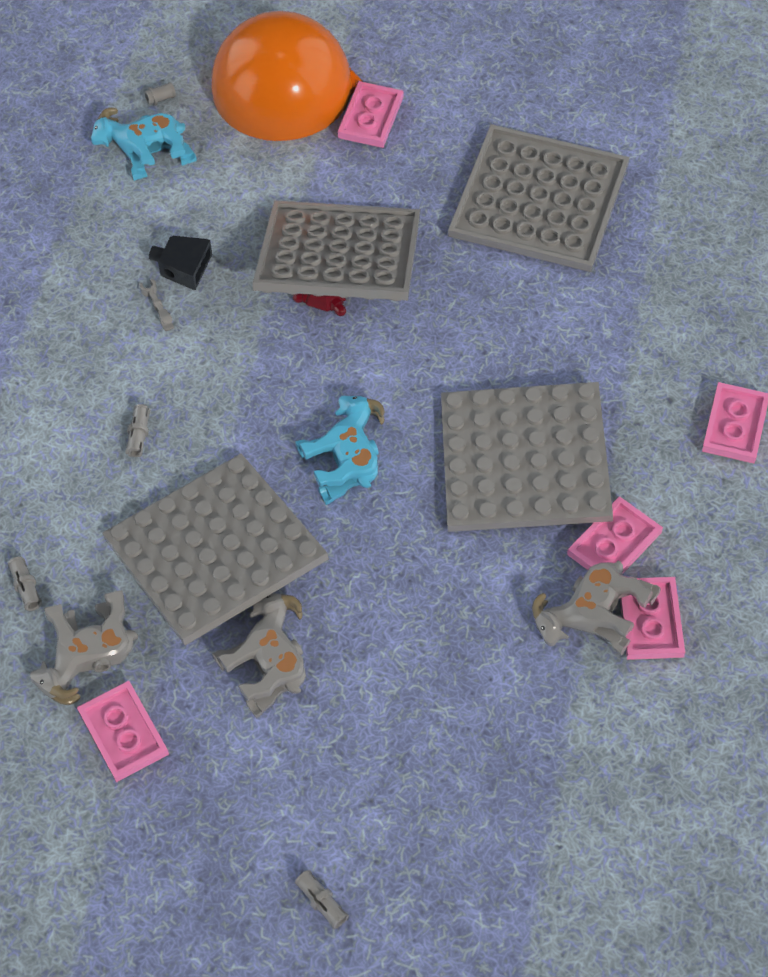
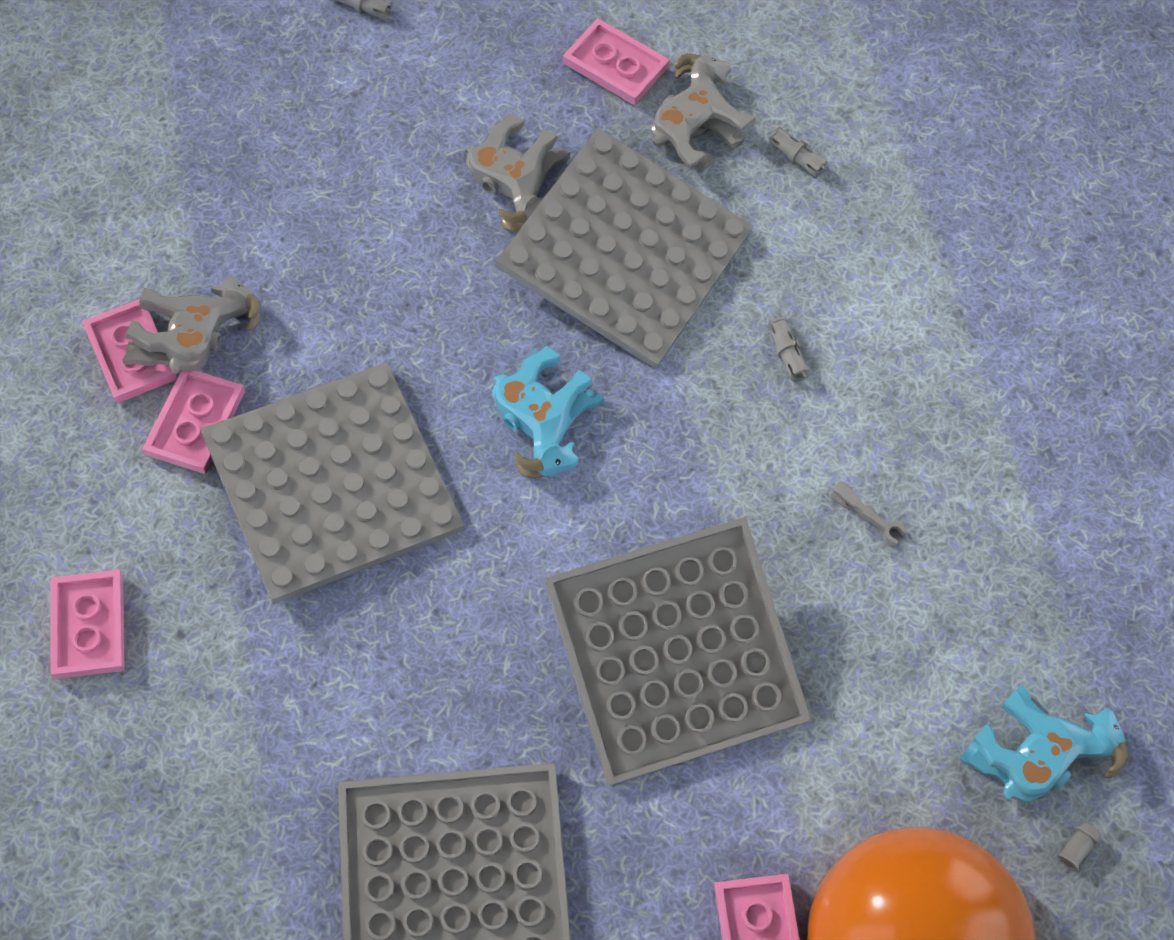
camera: 155 degrees right, 5 degrees up
(183, 259) = (873, 579): black torso -> none

